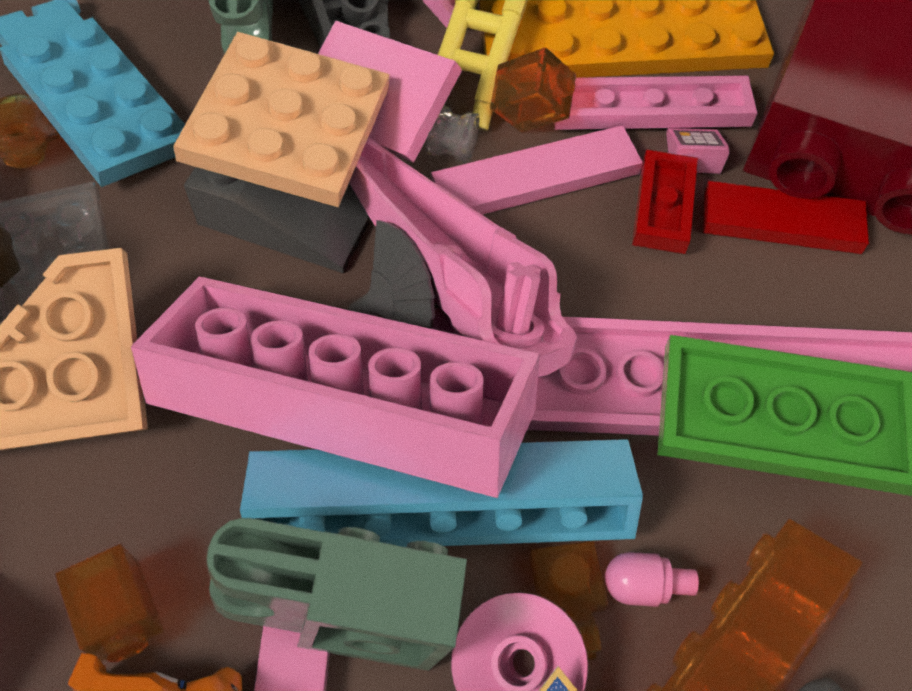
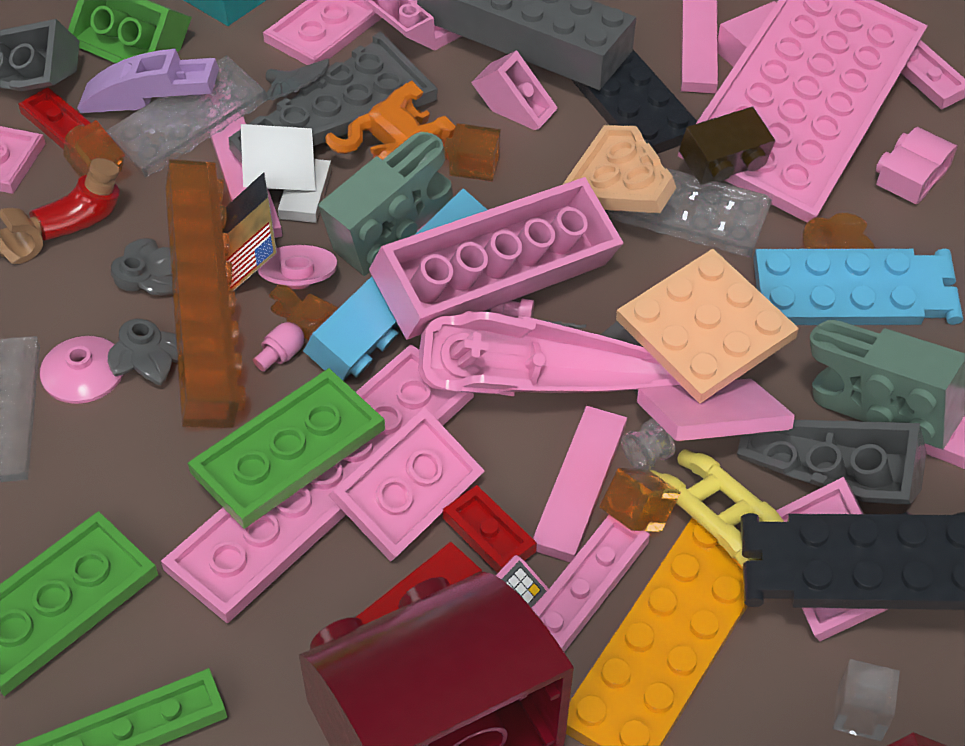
camera: 130 degrees right, 10 degrees down
(700, 287) = (406, 484): none -> bright pink plate

